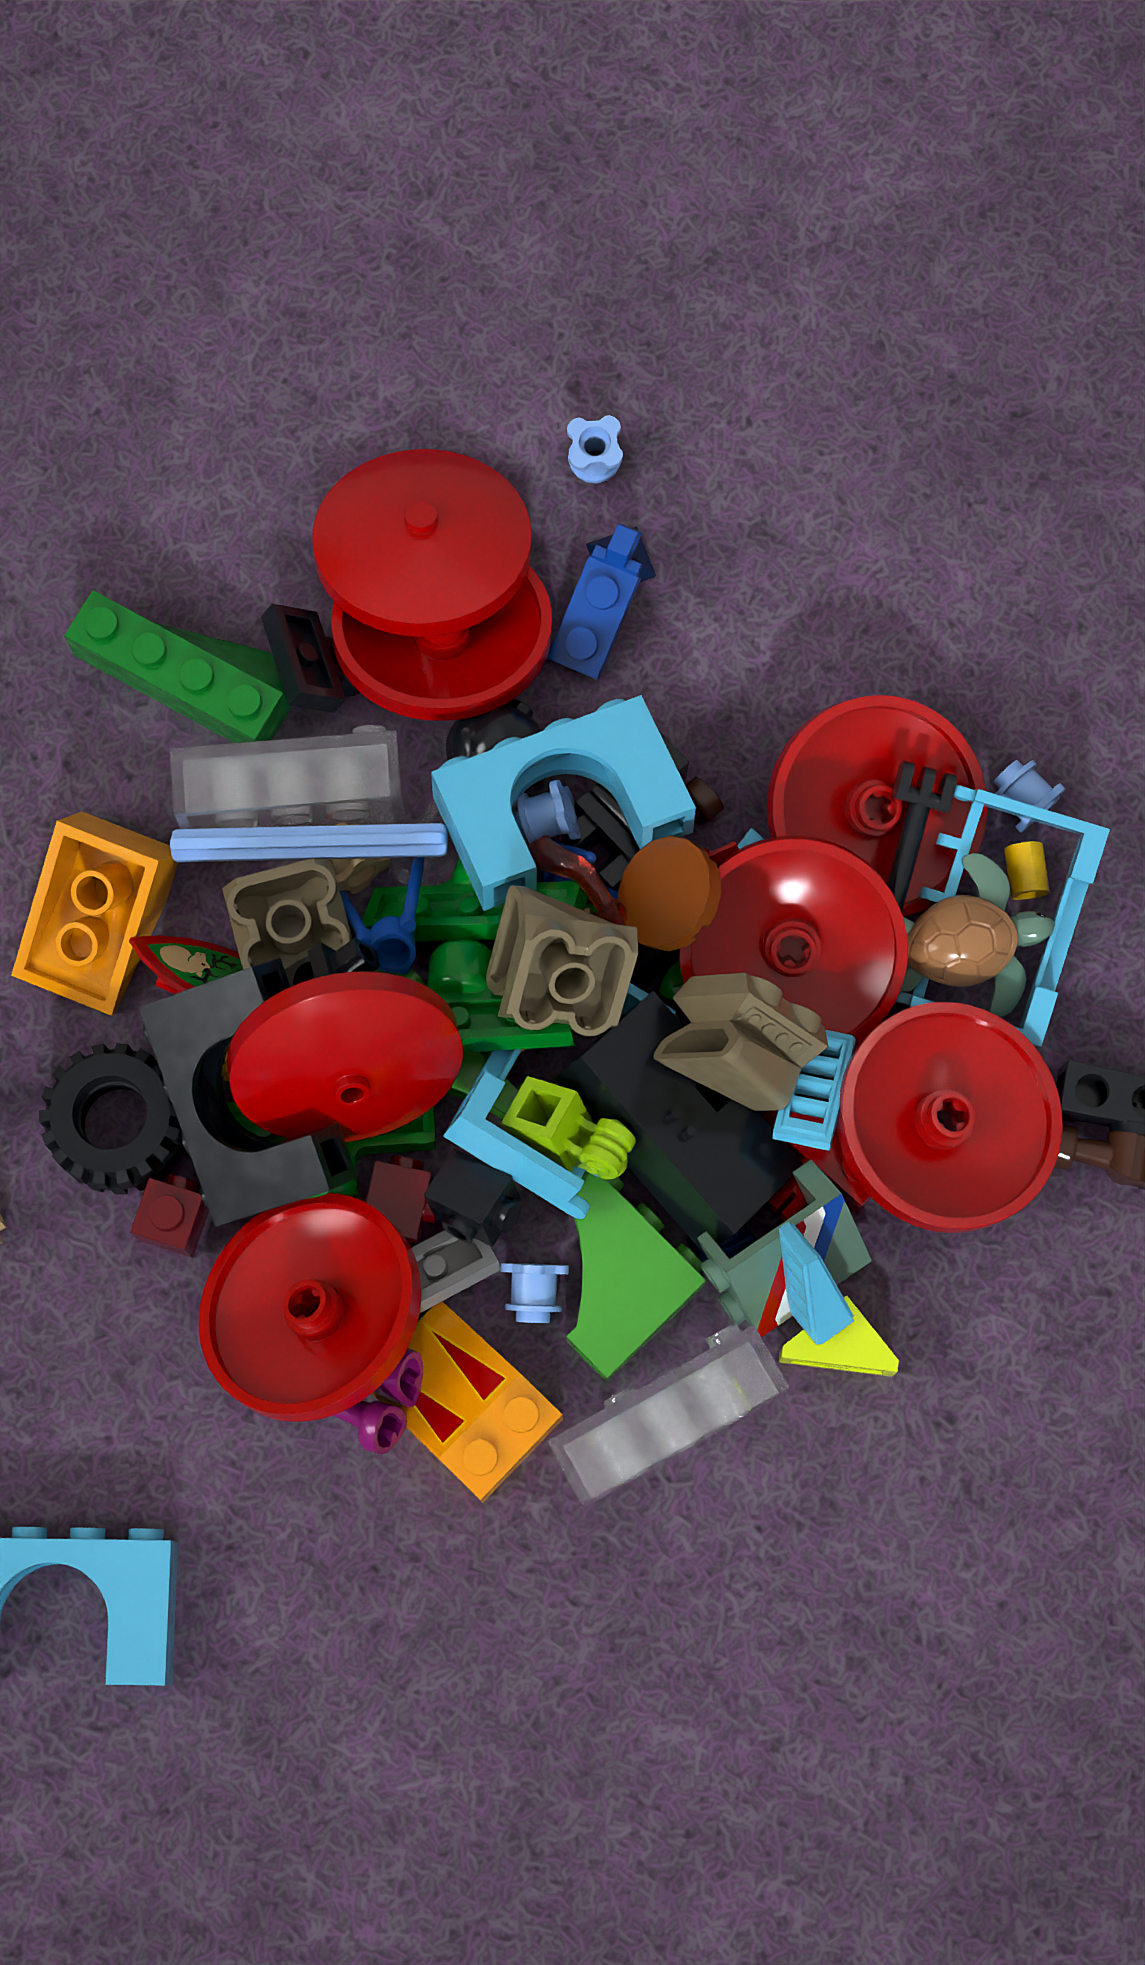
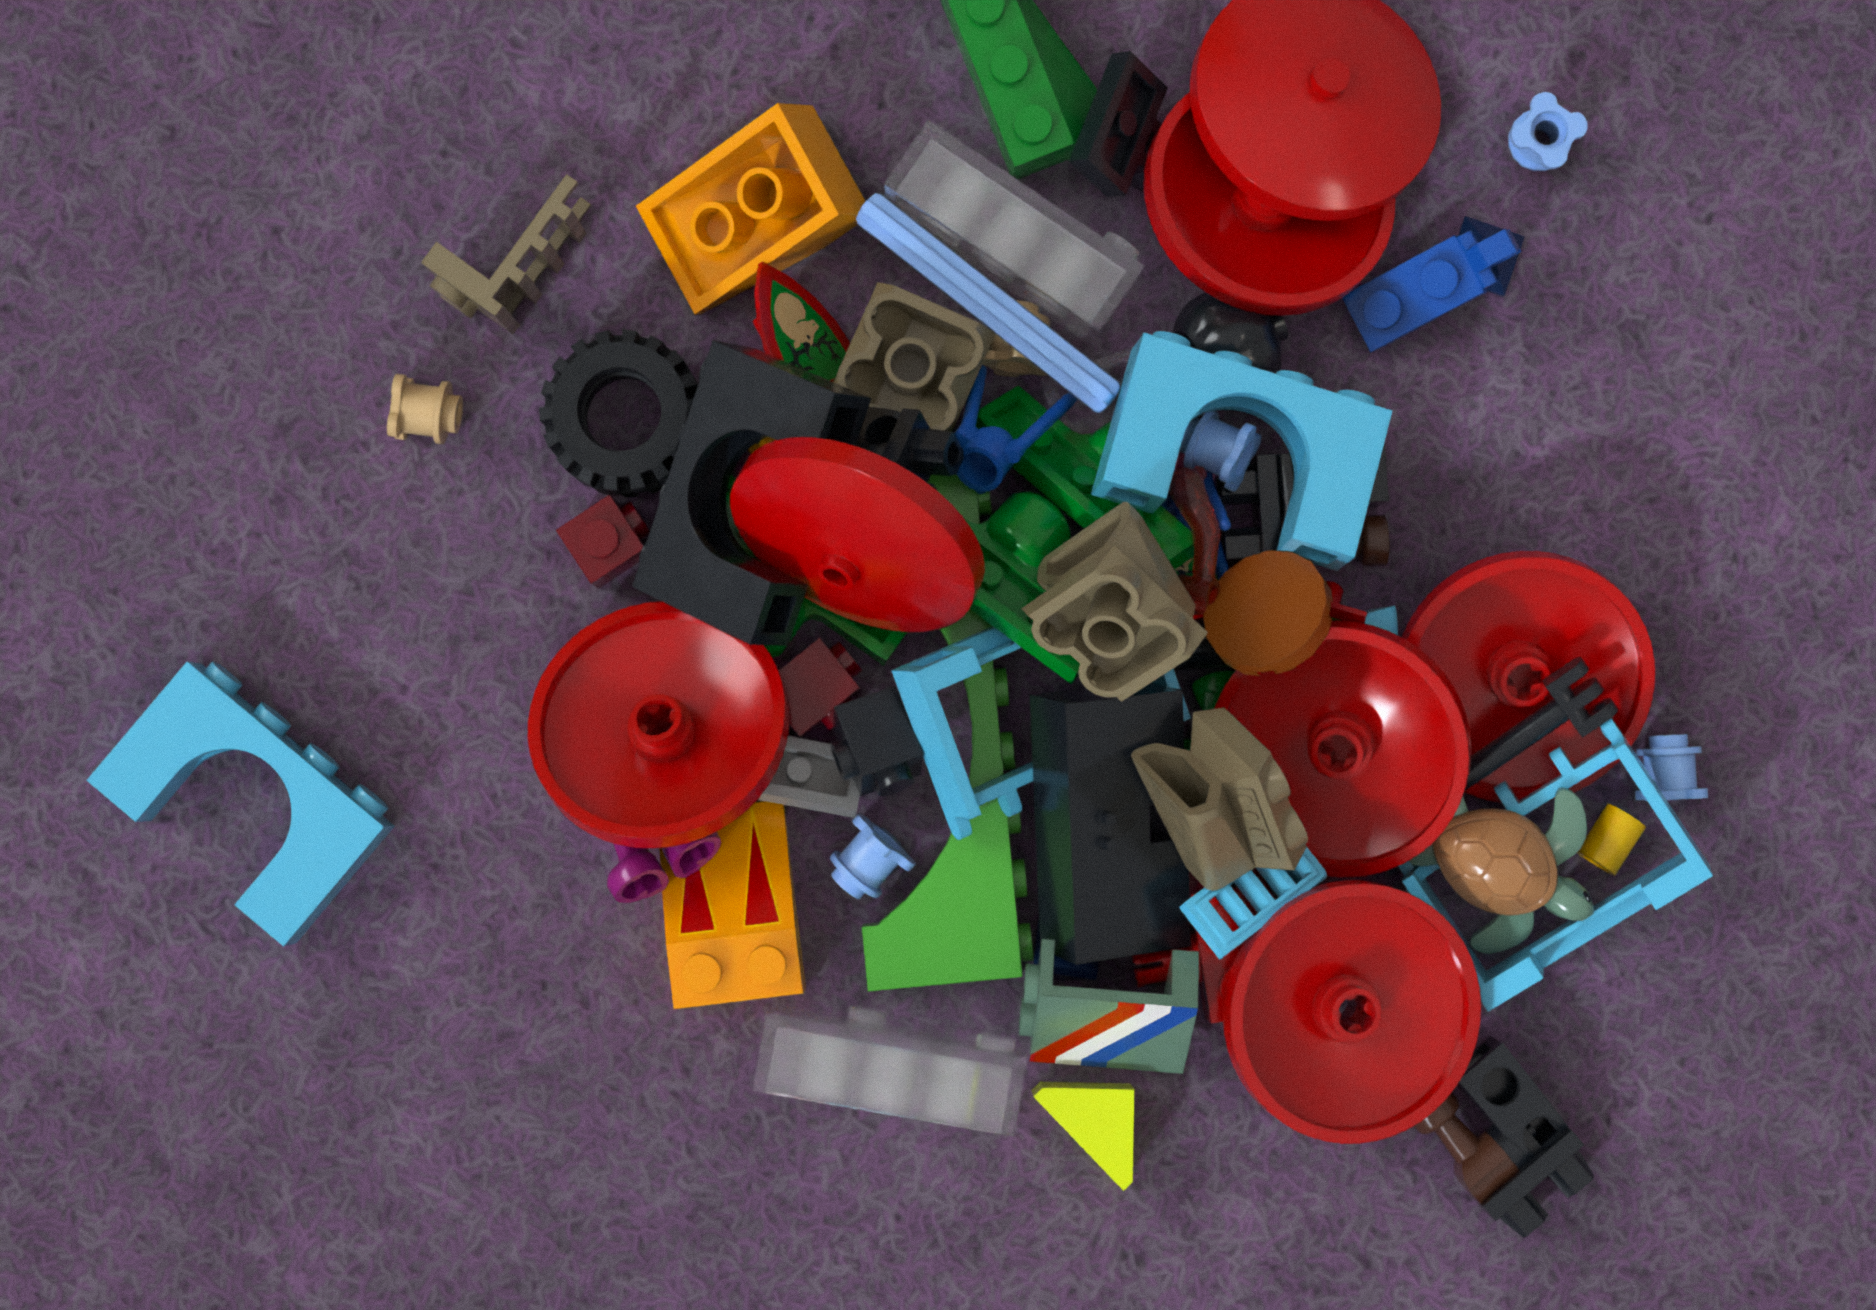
camera: 35 degrees right, 10 degrees up
(561, 1129) = (999, 754): lime brick -> none
(811, 1289) = (1103, 1065): medium azure slope -> none

